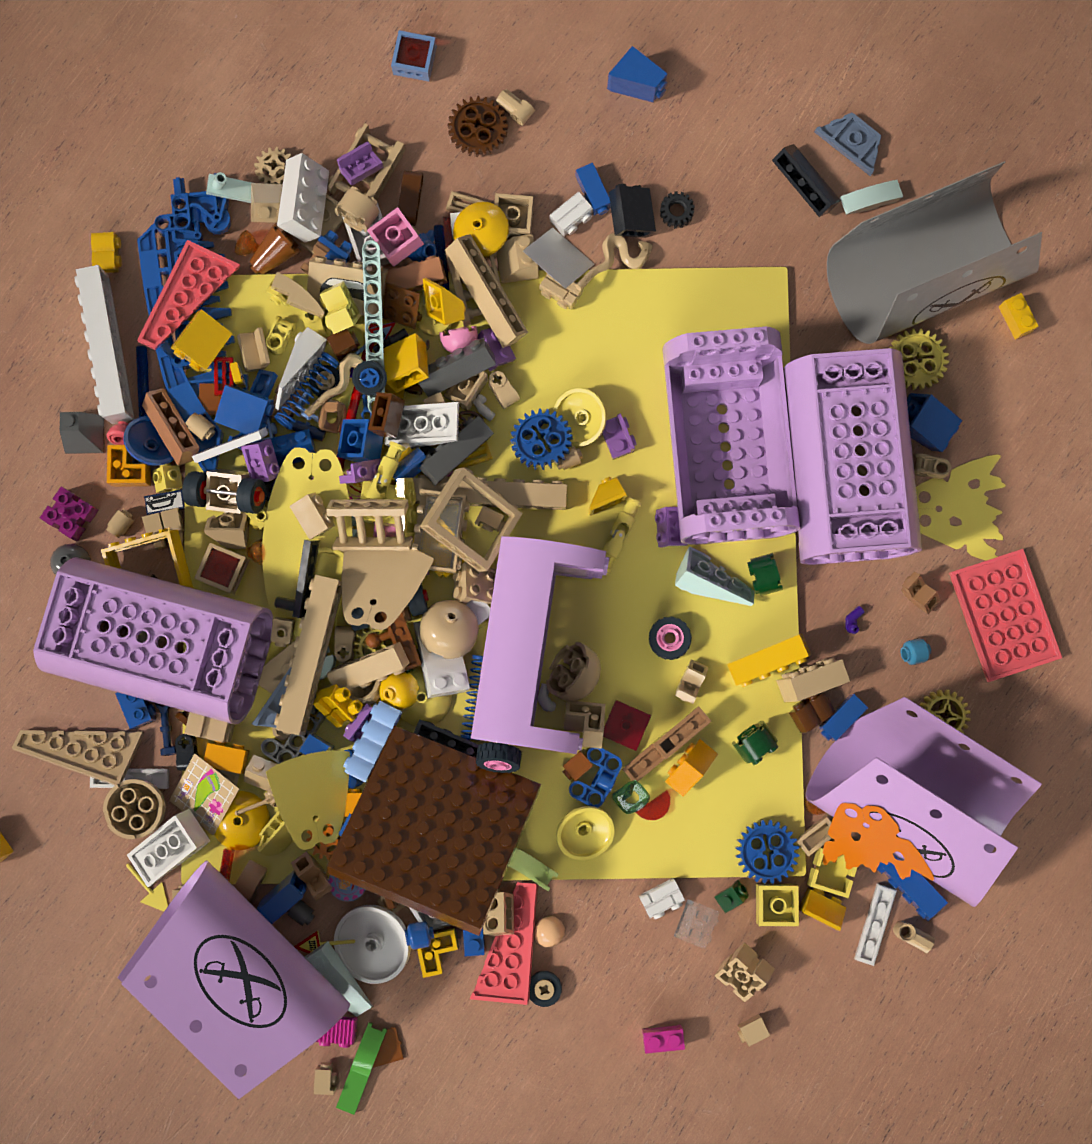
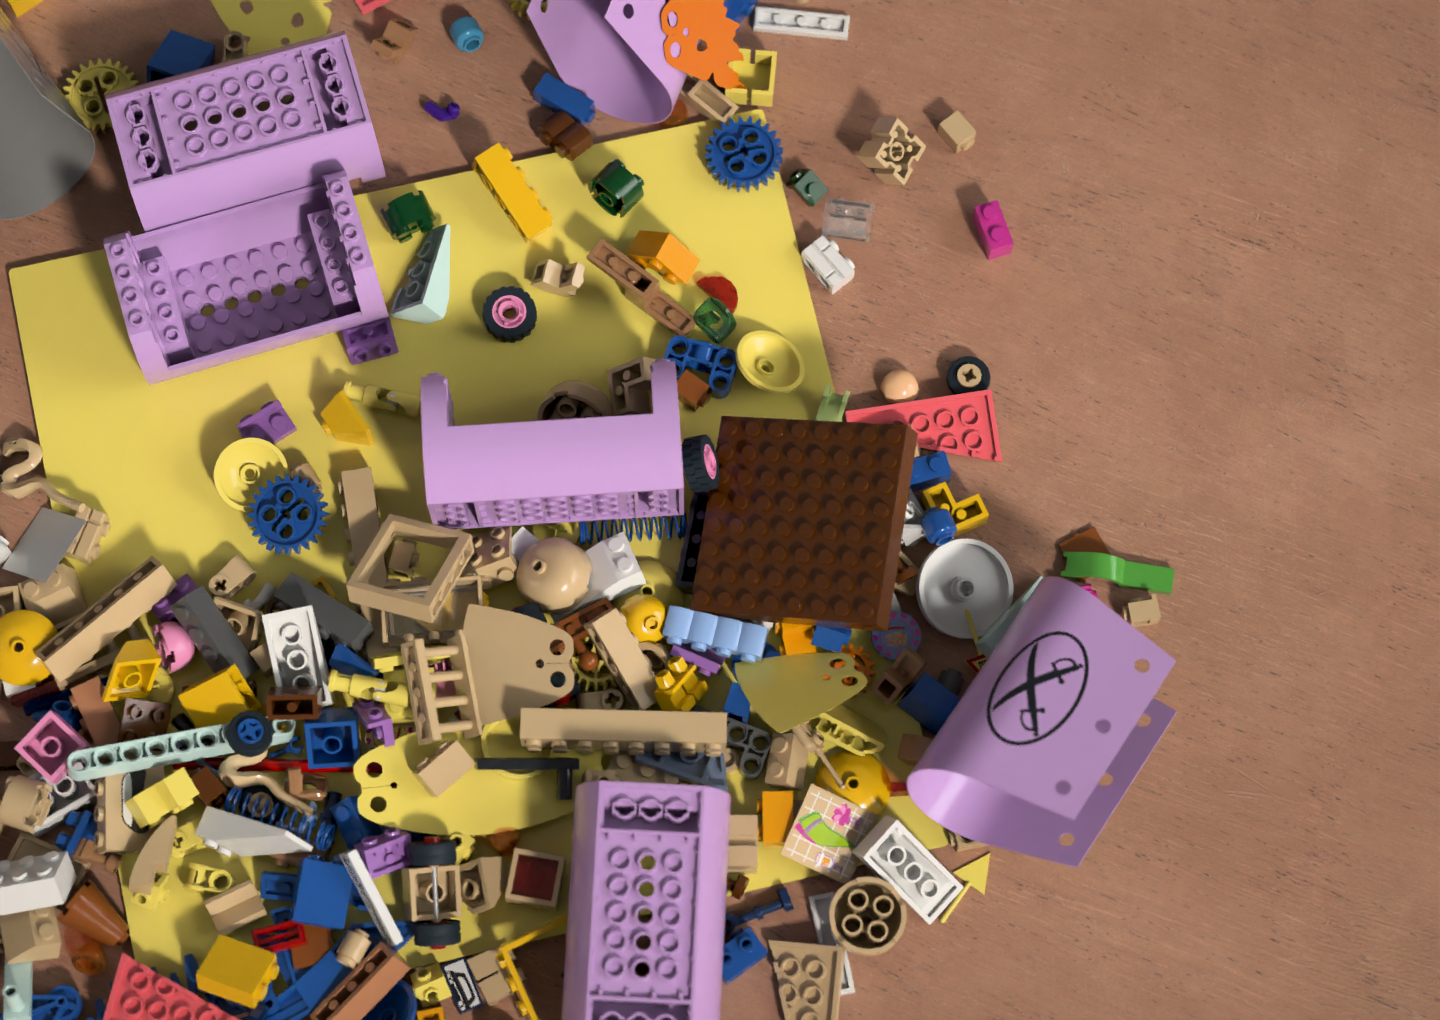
camera: 105 degrees left, 10 degrees down
(185, 752) = (785, 871): black piece -> none
(237, 375) = (275, 911): yellow tile -> none
(626, 725) = (627, 342): dark red plate -> none
(777, 904) = (804, 131): light yellow brick -> none
(812, 679) = (526, 138): tan brick -> none
(822, 908) = (796, 80): yellow slope -> none

